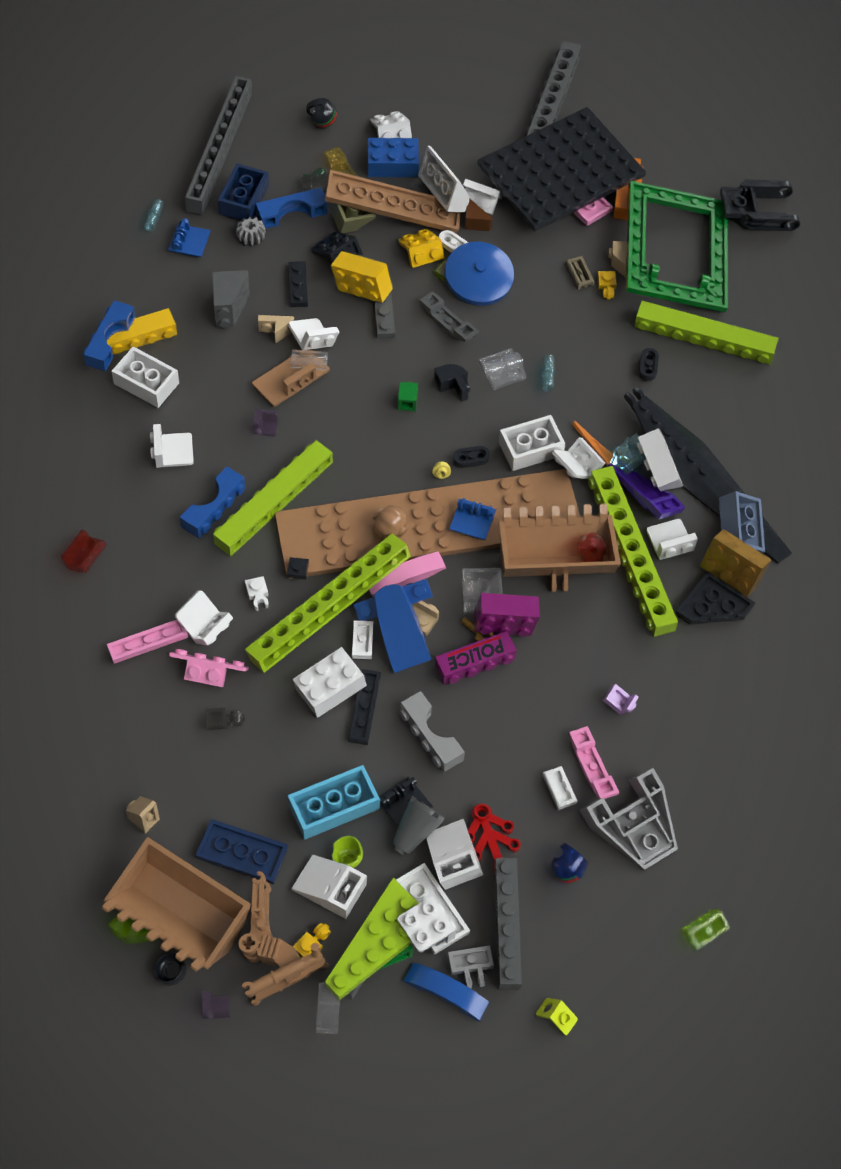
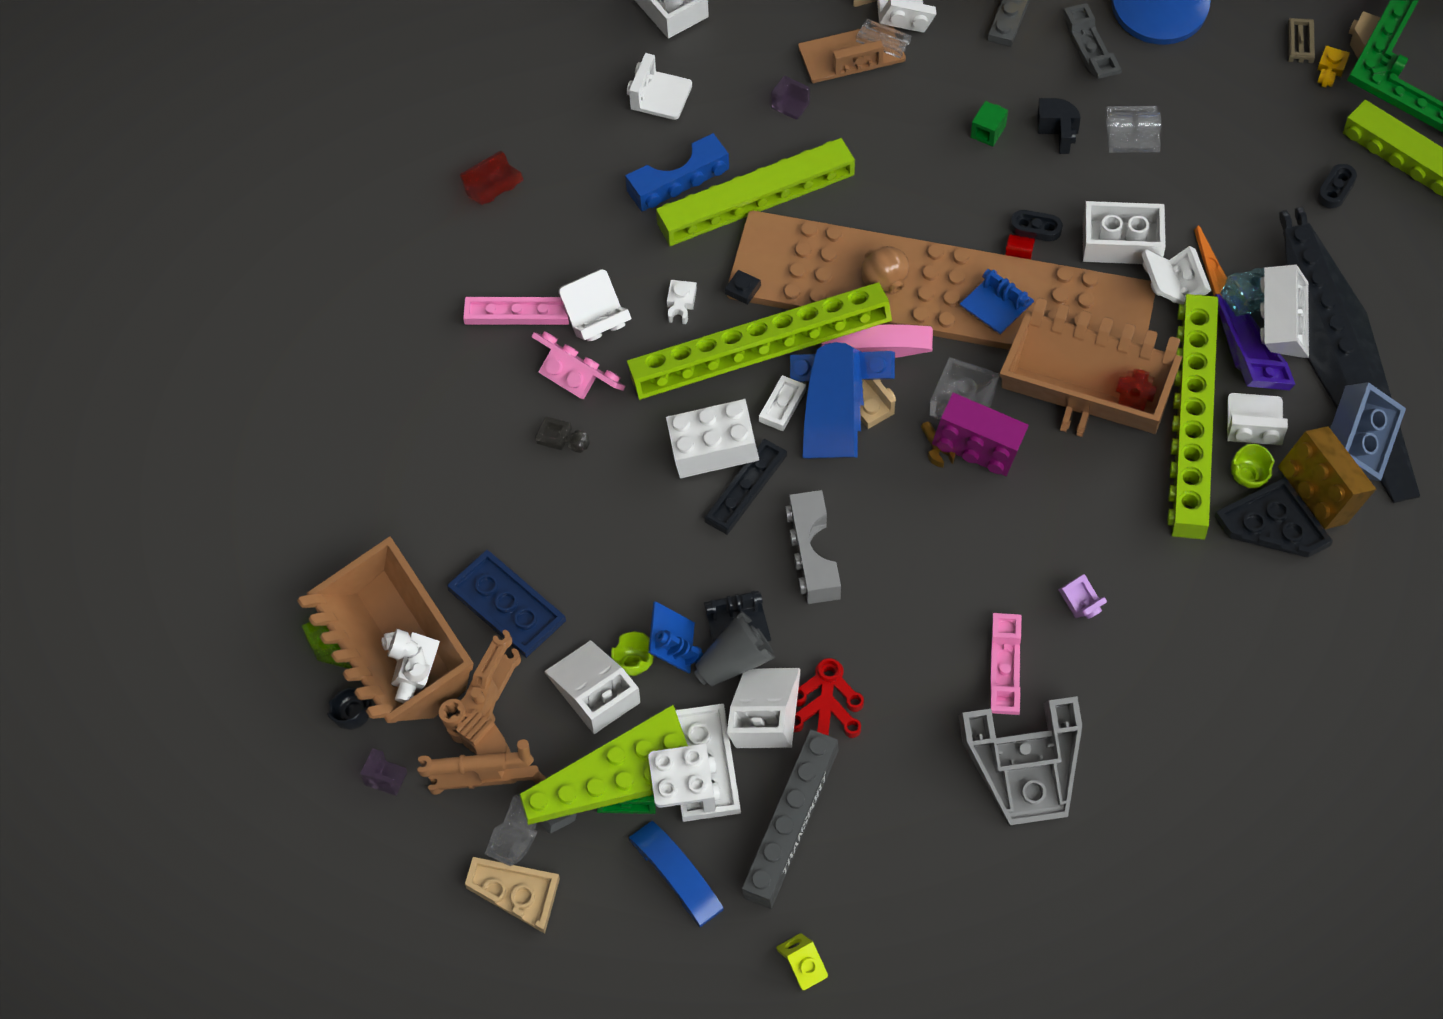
camera: 30 degrees right, 0 degrees up
(143, 813) = (409, 513): tan slope -> none
(204, 918) = (414, 661): none -> white torso
(304, 944) = (555, 738): yellow plate -> none
(333, 802) = (630, 583): medium azure brick -> none
(346, 1048) = (515, 889): none -> tan wing
(369, 831) = (673, 638): none -> blue hinge
(441, 470) = (988, 229): light yellow plate -> none
(467, 475) = (1020, 246): none -> red slope
(469, 961) = (723, 847): light grey hinge -> none
(475, 658) = (916, 476): magenta brick -> none
(548, 372) = (1192, 153): clear light blue pin -> none
(559, 788) = (946, 679): white plate -> none
(570, 866) = (907, 779): clear blue helmet -> none
(684, 571) = (1252, 466): none -> lime hair
(706, 928) = (1056, 932): clear neon green slope -> none

